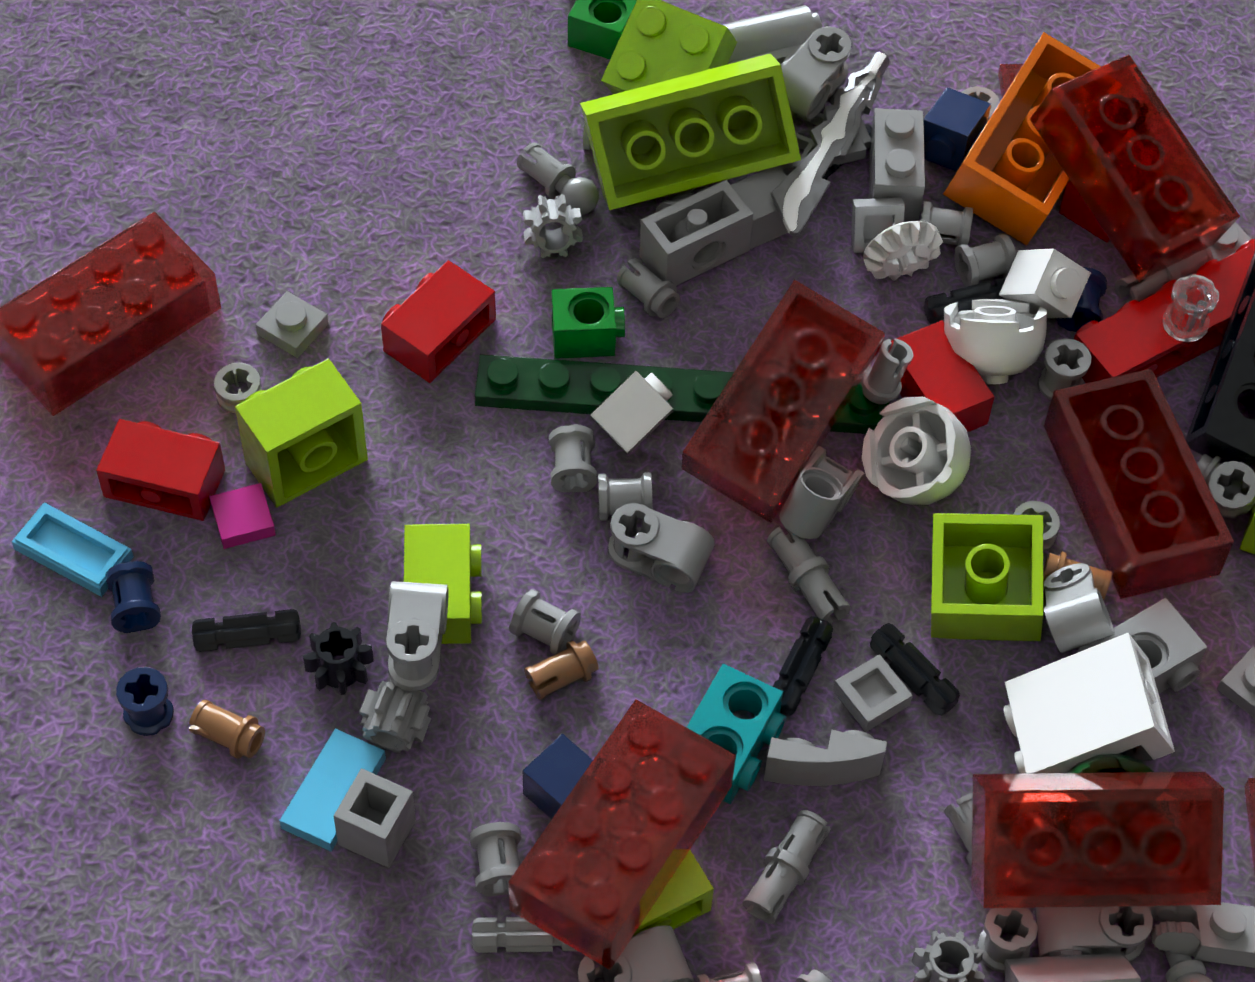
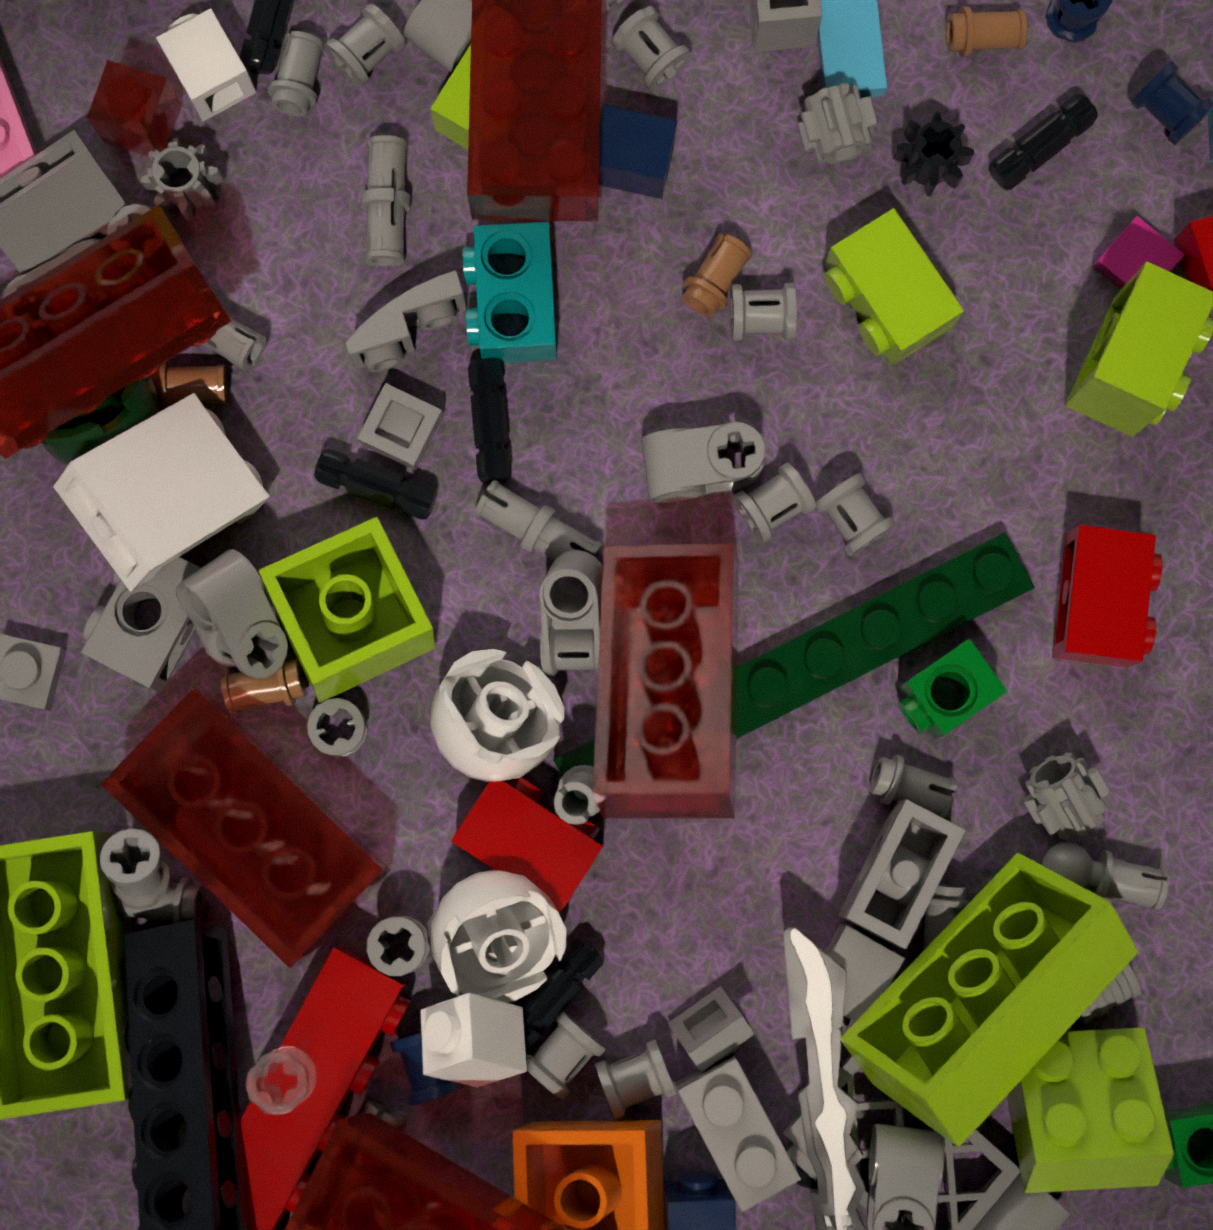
camera: 150 degrees right, 25 degrees up
(415, 633) = (872, 191): light grey piece -> none
(634, 410) = (824, 591): white brick -> none
(902, 249) = (659, 997): white gear -> none

